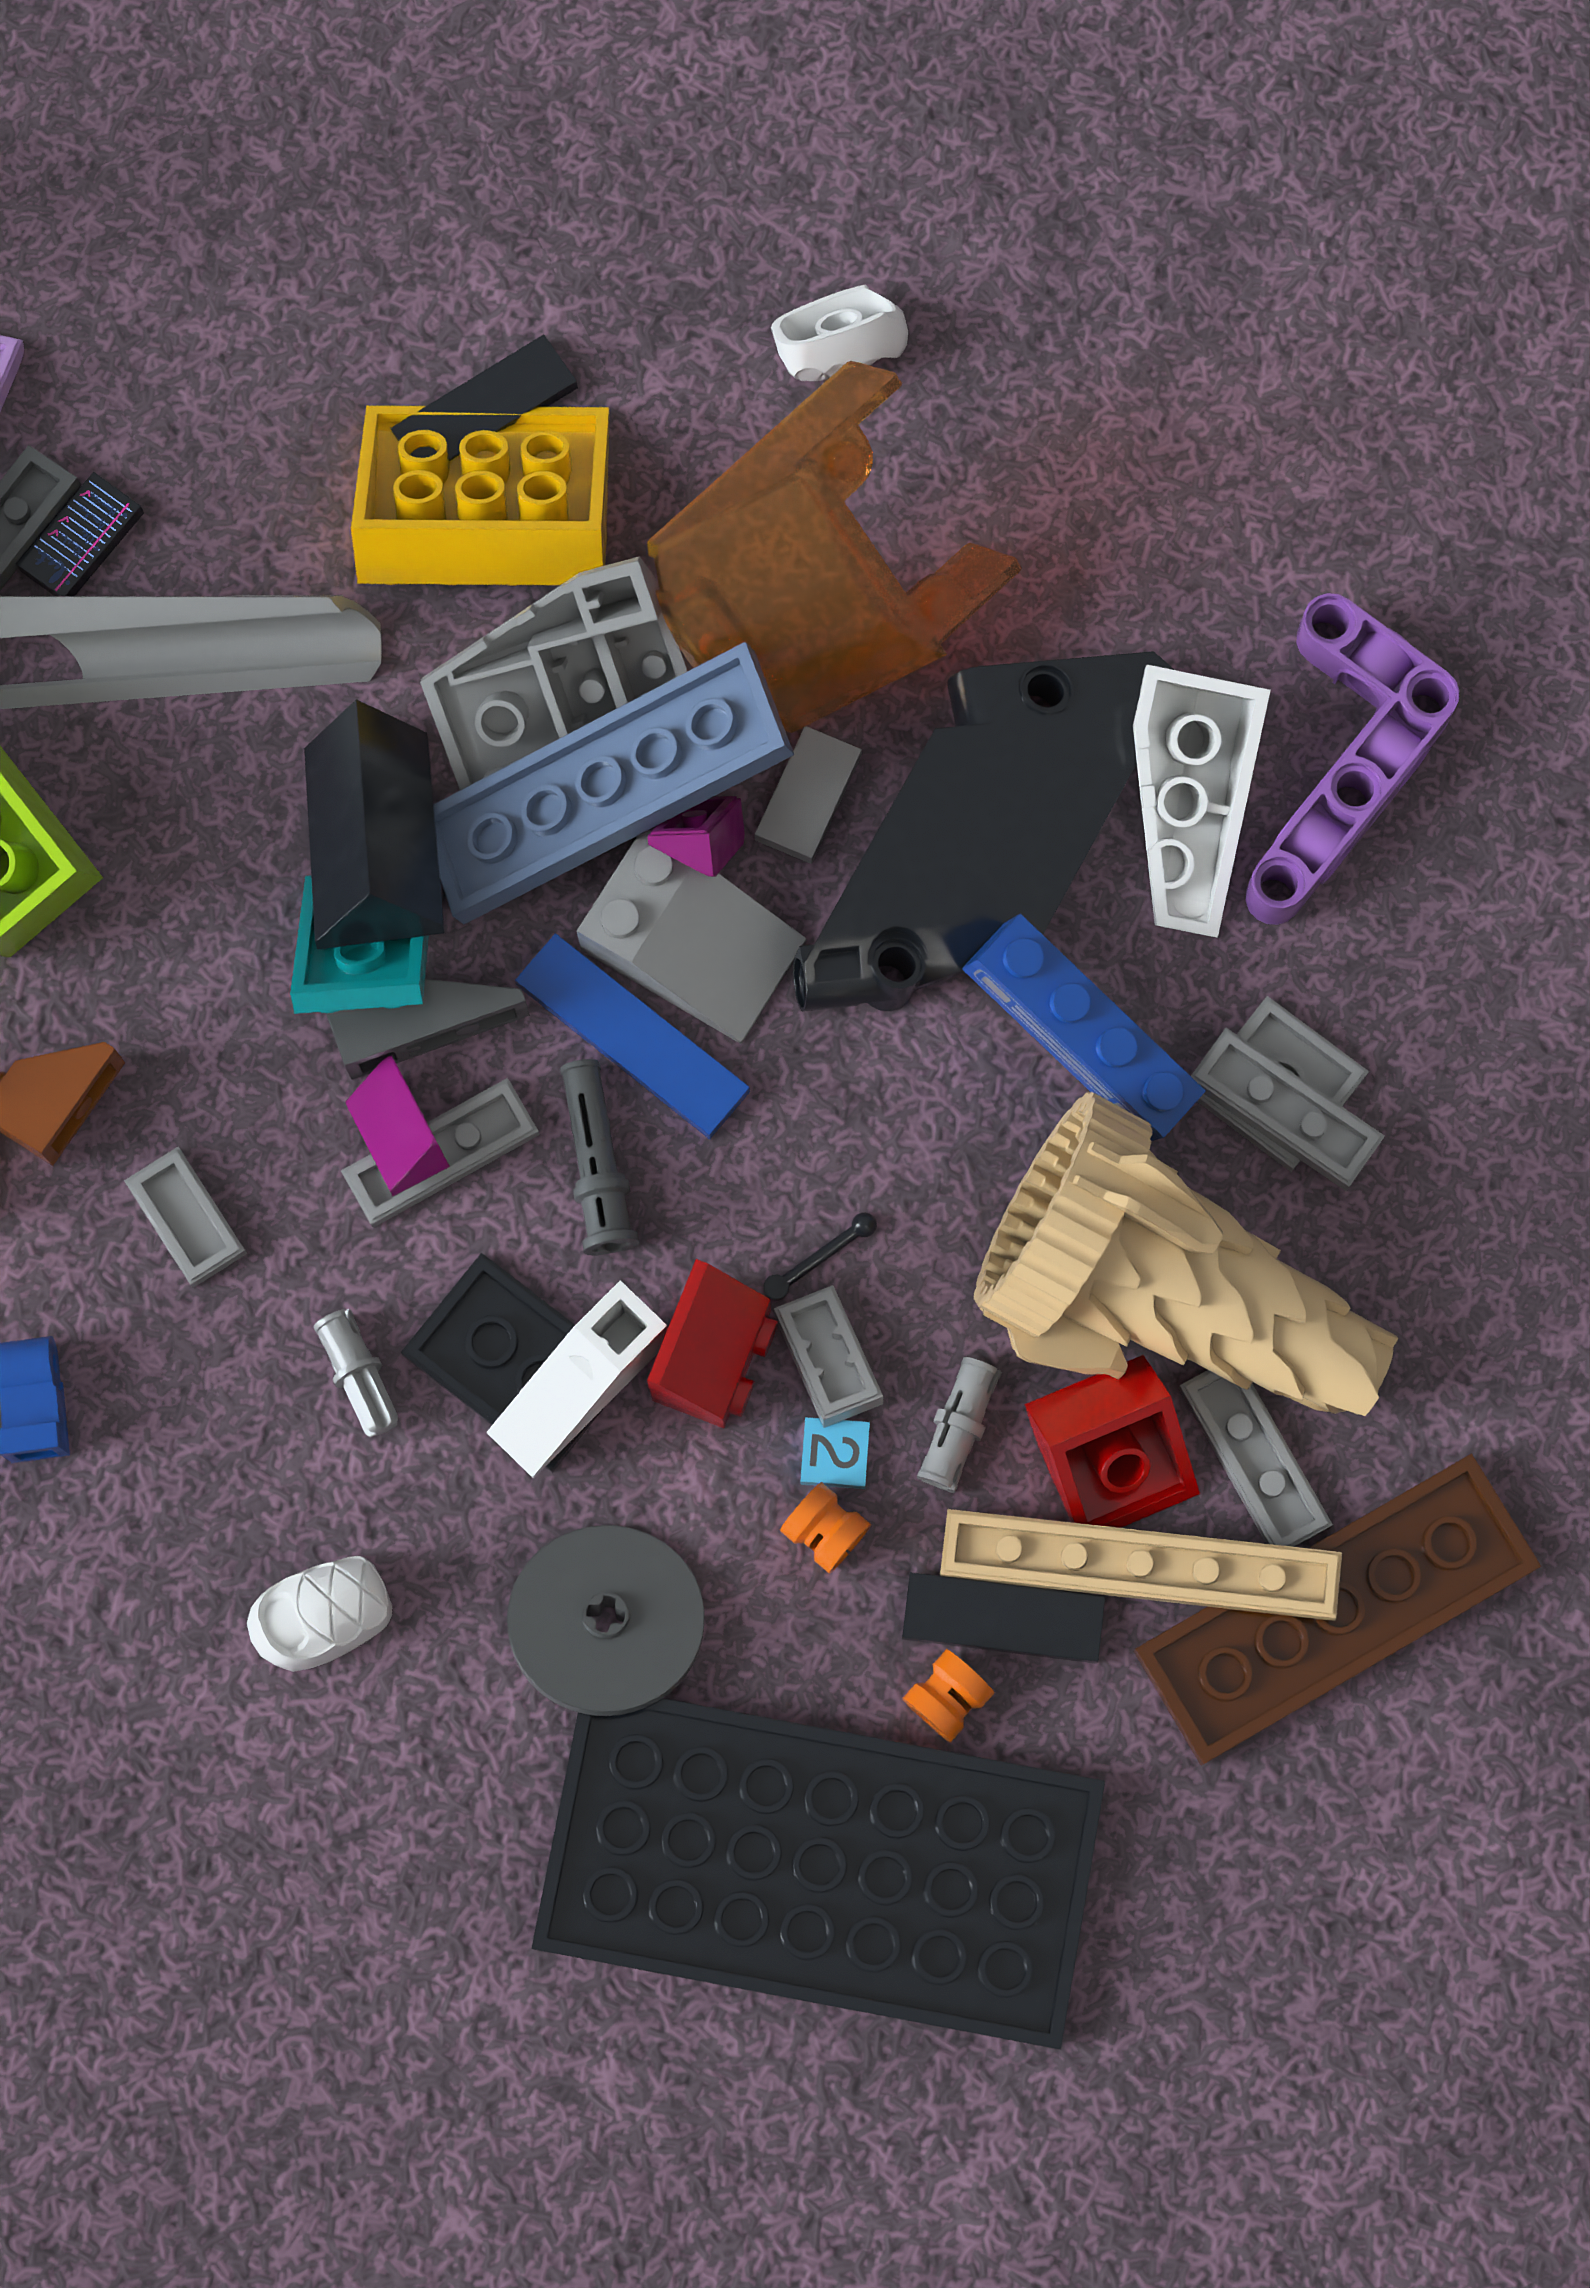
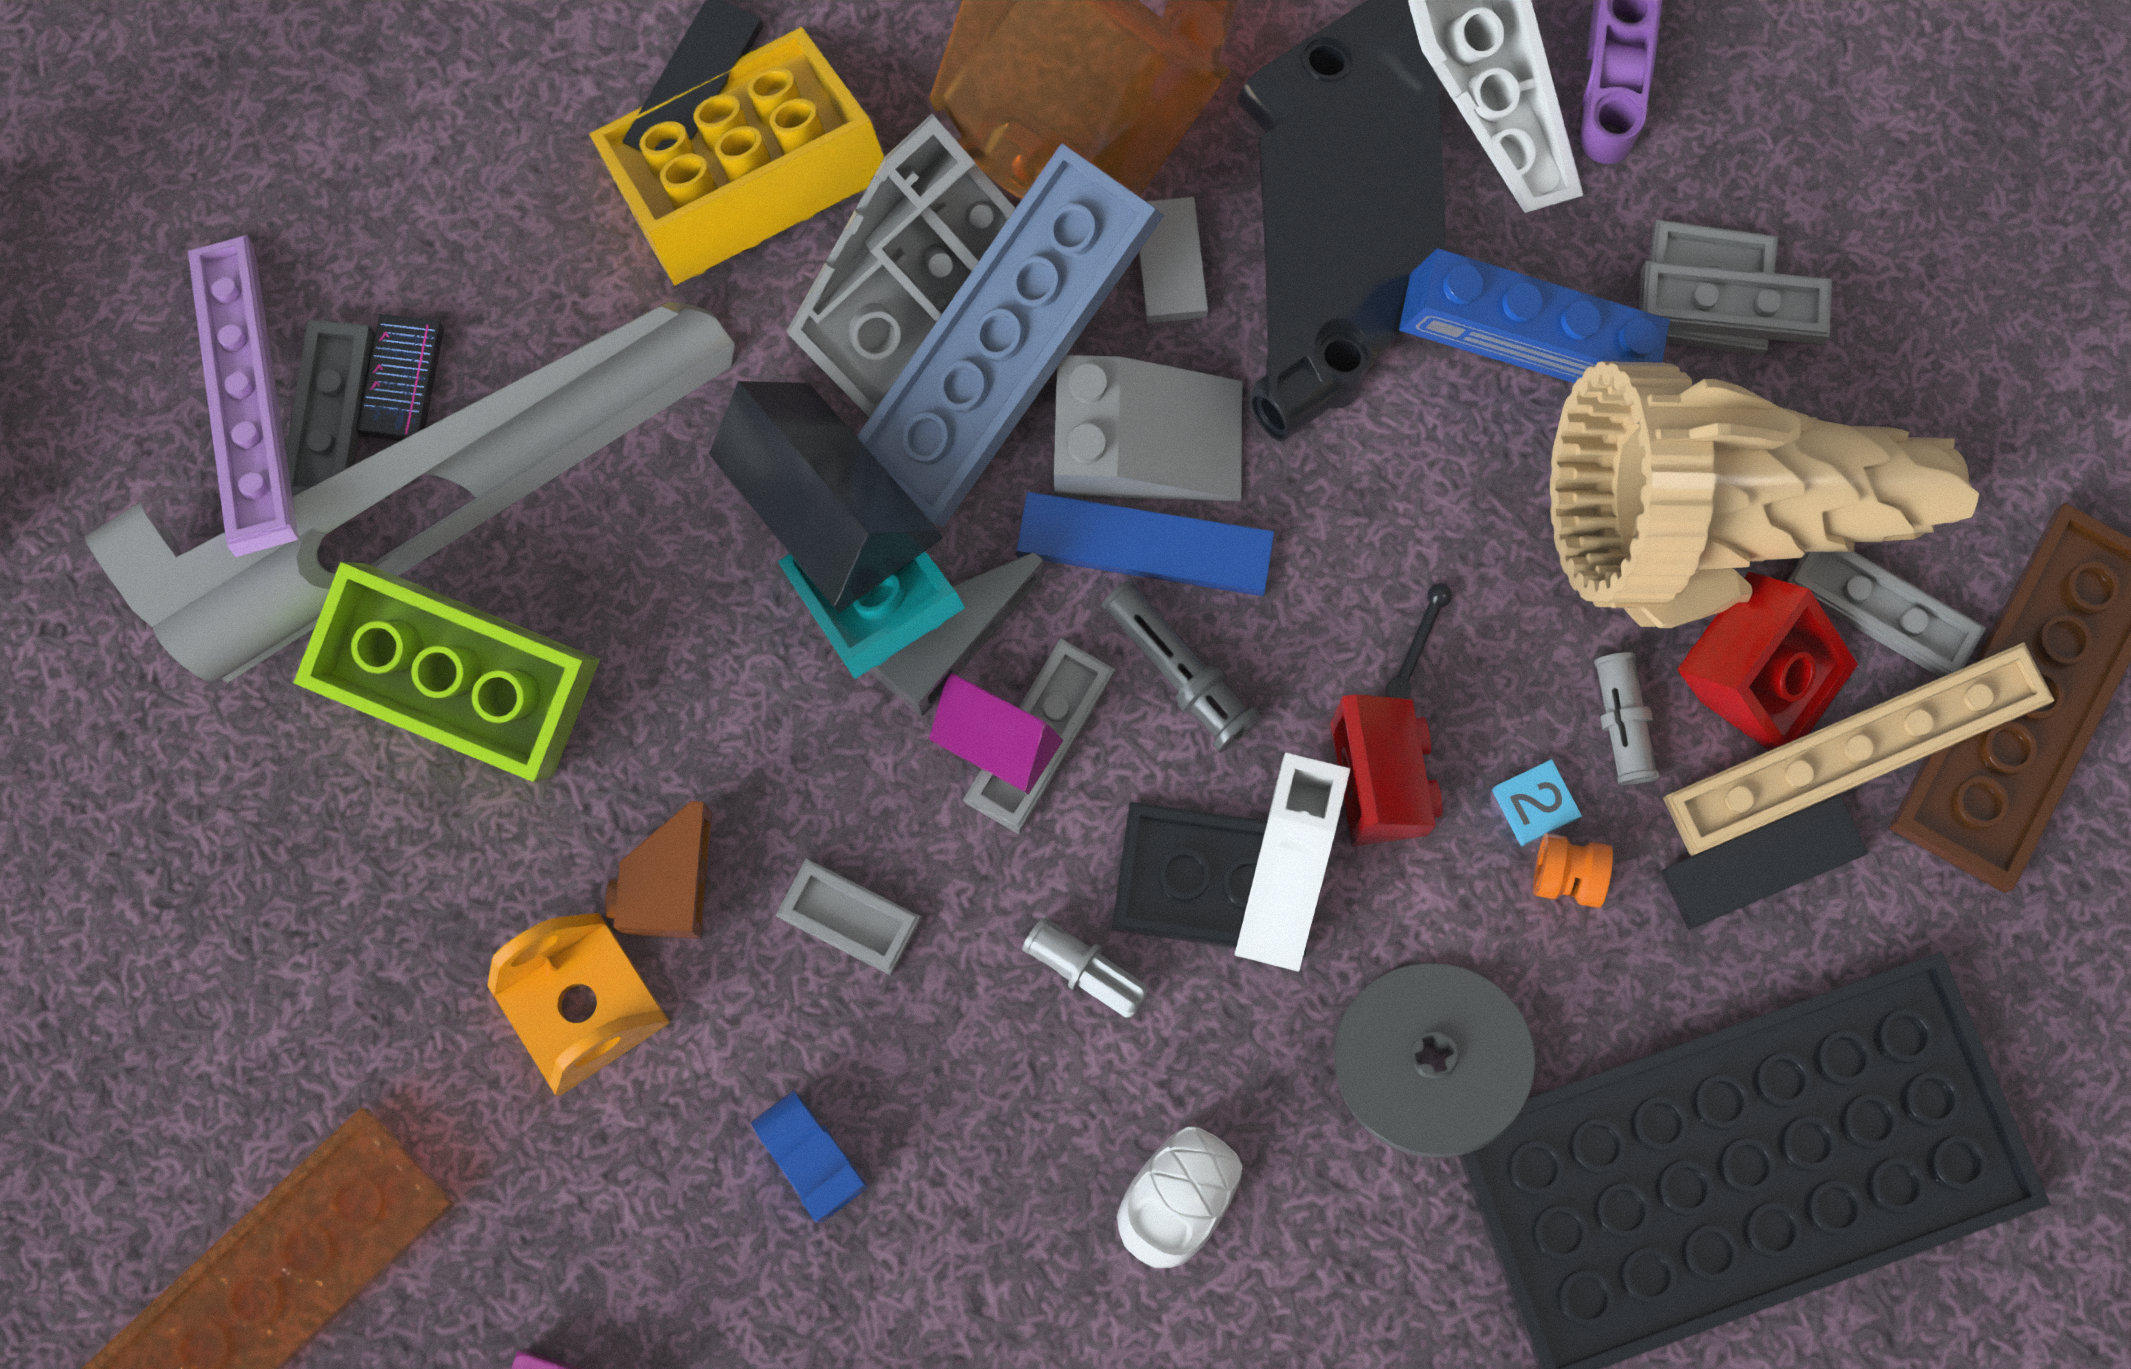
camera: 30 degrees left, 0 degrees up
(703, 835) = (1110, 337): magenta slope -> none
(828, 1356) = (1483, 722): light grey plate -> none
(940, 1709) = (1765, 954): orange wheel -> none

